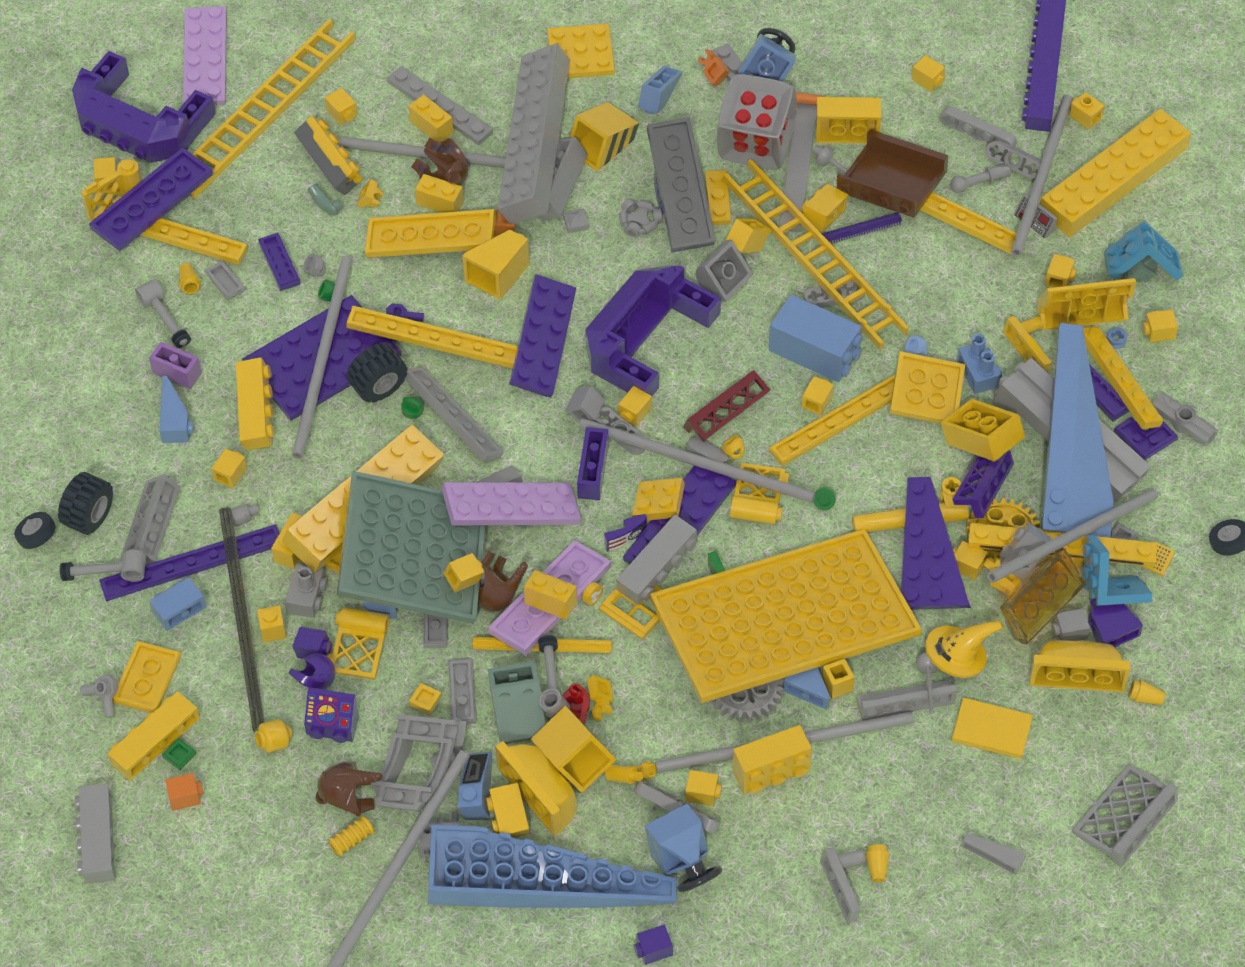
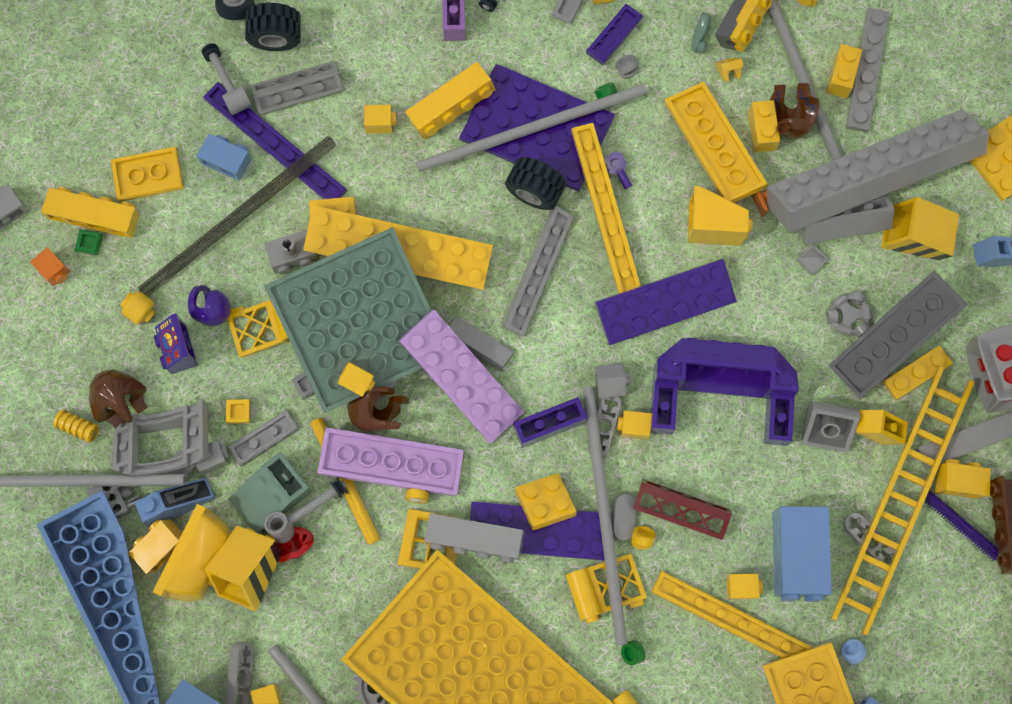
camera: 60 degrees right, 20 degrees up
(105, 688) = (113, 149): light grey piece -> none
(173, 416) = (404, 45): medium blue slope -> none
(242, 514) = (342, 156): light grey cylinder -> none
(271, 624) = (242, 243): yellow brick -> none
(311, 641) = (240, 288): dark purple brick -> none
(412, 407) = (528, 232): green tile -> none
(550, 594) = (381, 464): yellow brick -> none
(601, 693) = (318, 558): yellow plate -> none
(630, 774) = (244, 629): yellow plant -> none
(631, 530) = (501, 494): slope -> none
(714, 563) = (503, 591): green tile -> none

